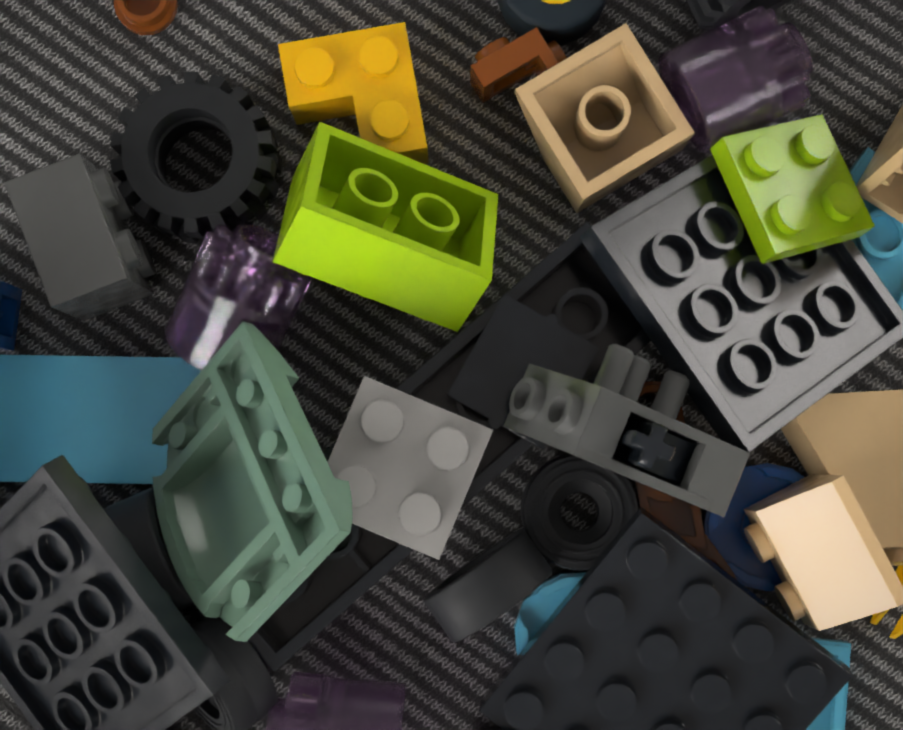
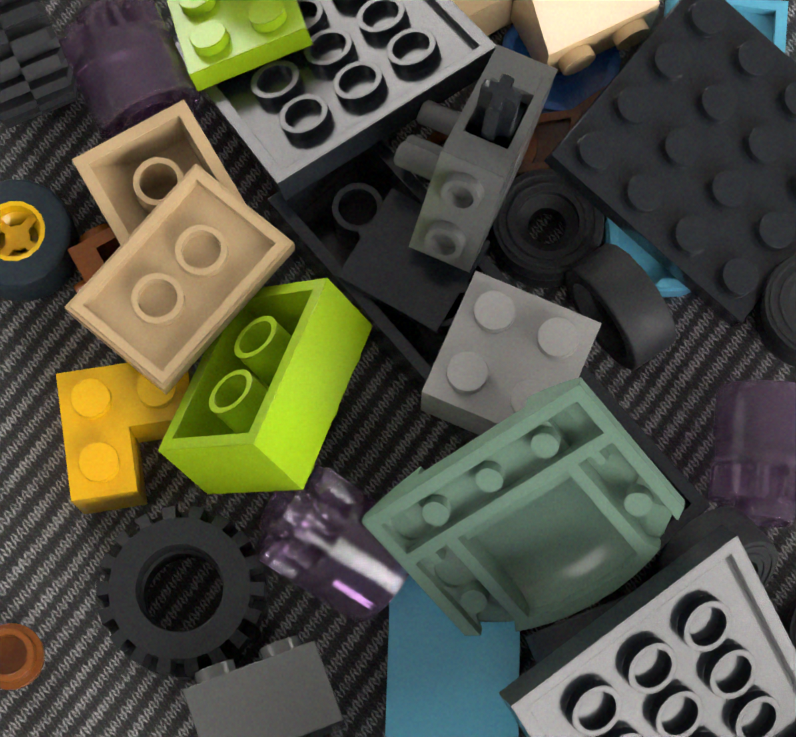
camera: 90 degrees left, 10 degrees down
(499, 136) = (180, 278): none -> tan tile

